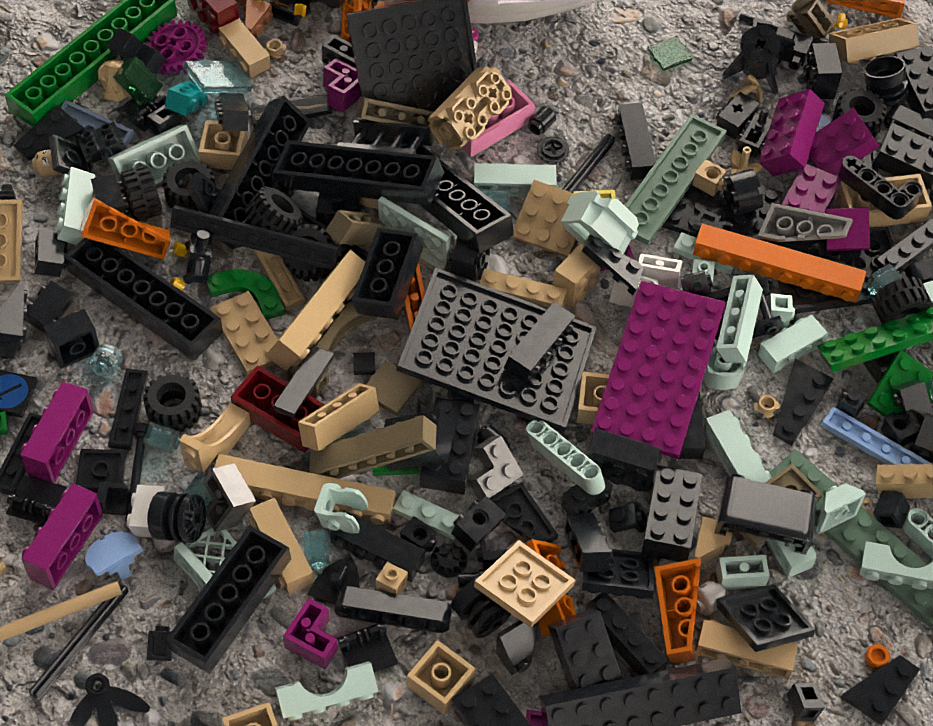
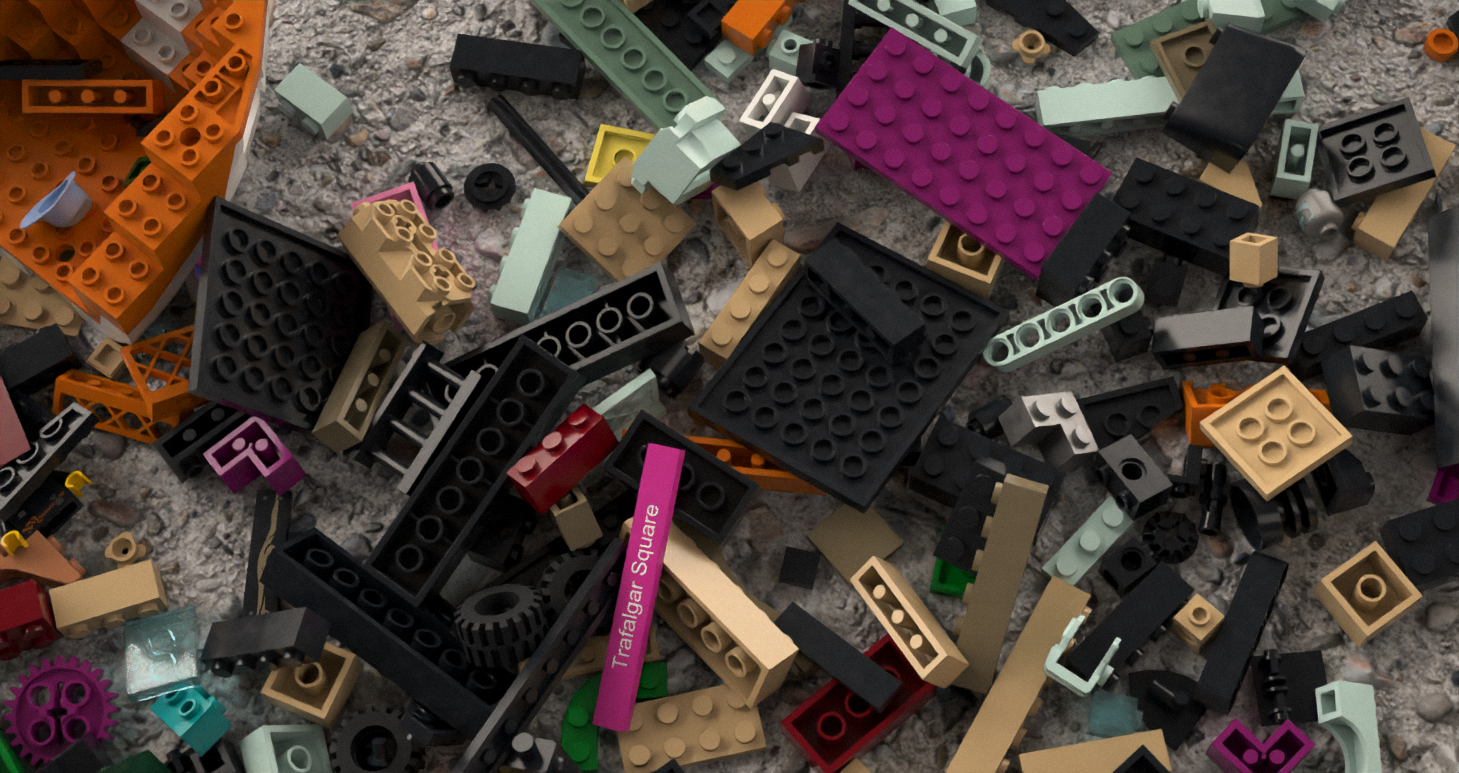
camera: 65 degrees left, 10 degrees up
(314, 268) = (638, 587): none -> dark pink tile
(376, 206) = (563, 458): none -> dark red brick
(573, 52) = (312, 101): none -> light aqua brick
(649, 552) = (1253, 259): none -> tan brick
(678, 599) = (1337, 251): orange wedge -> none

